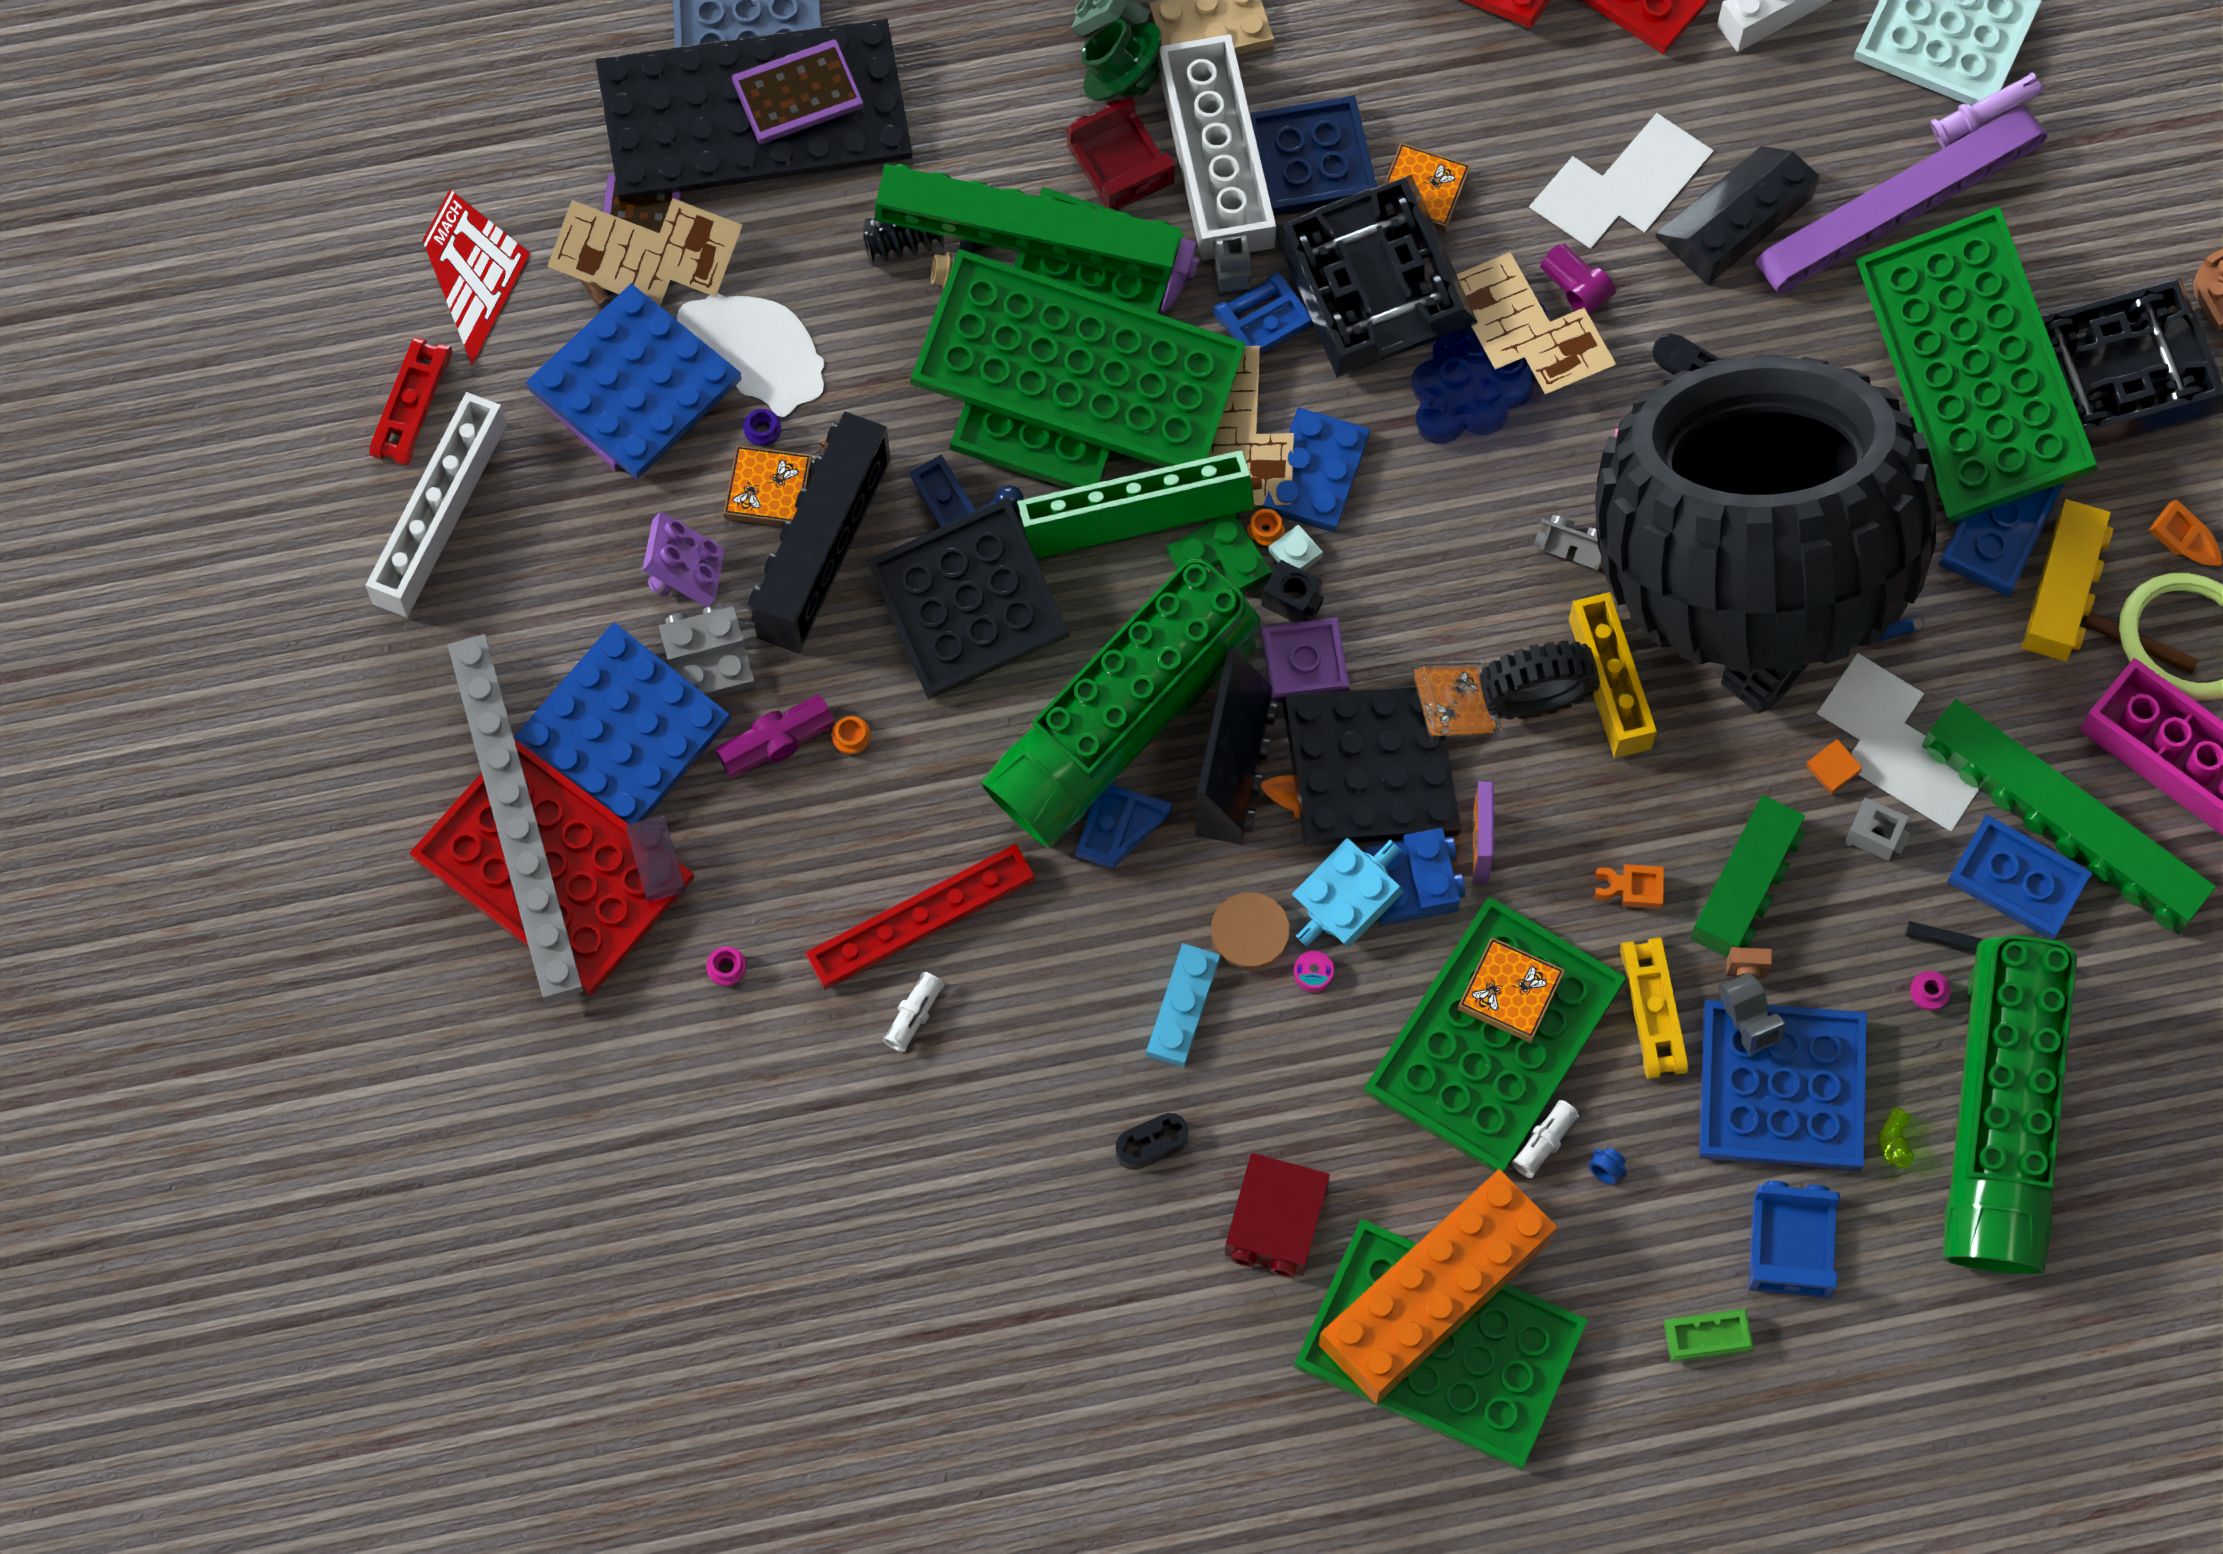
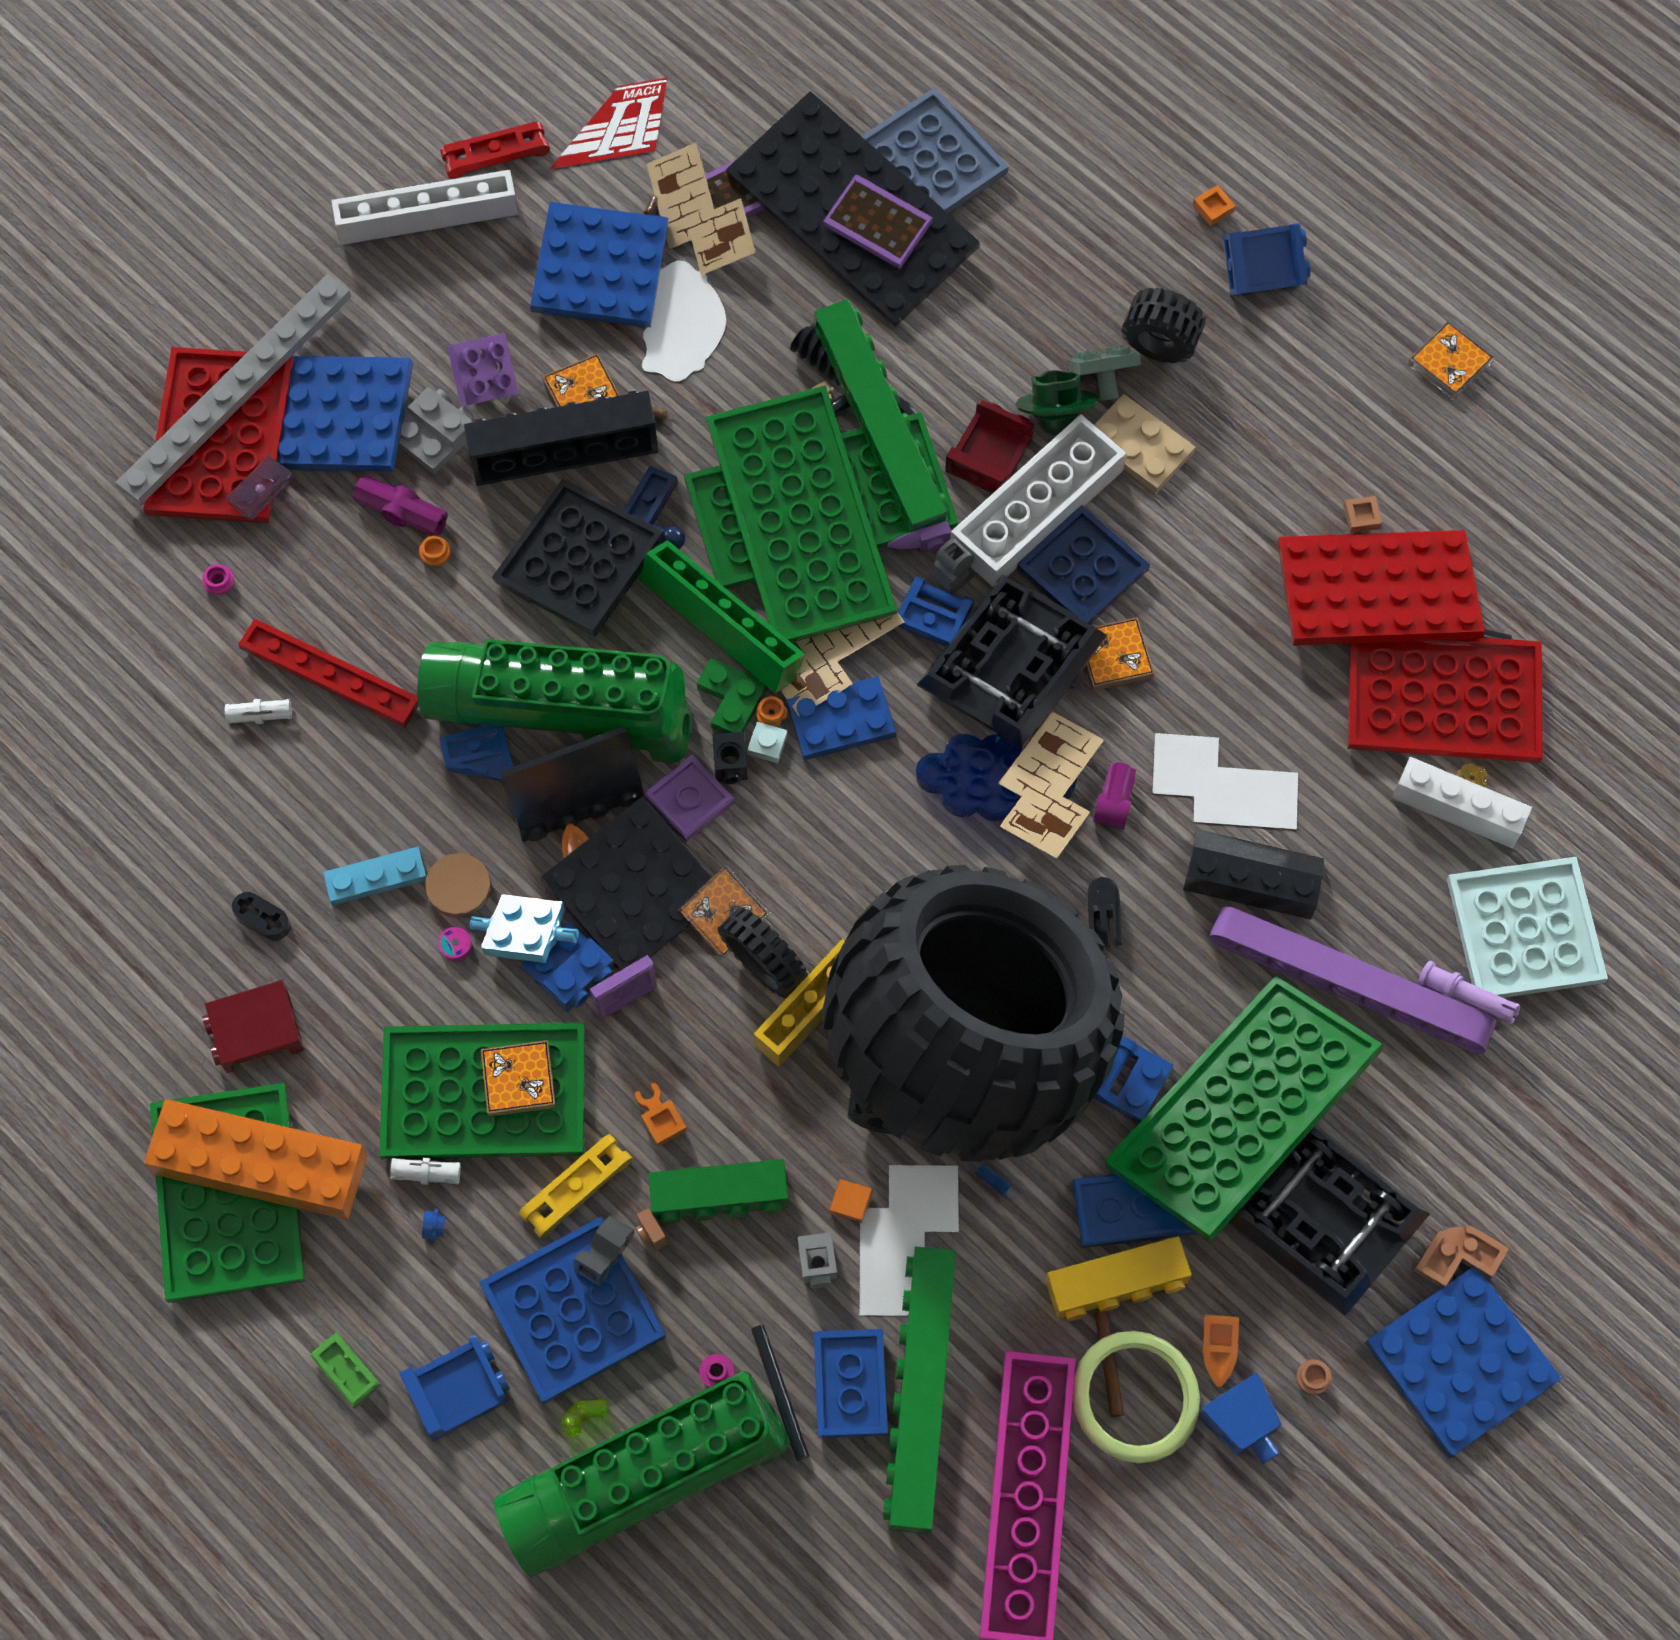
camera: 55 degrees right, 0 degrees up
(758, 418) = (623, 353): dark purple plate -> none

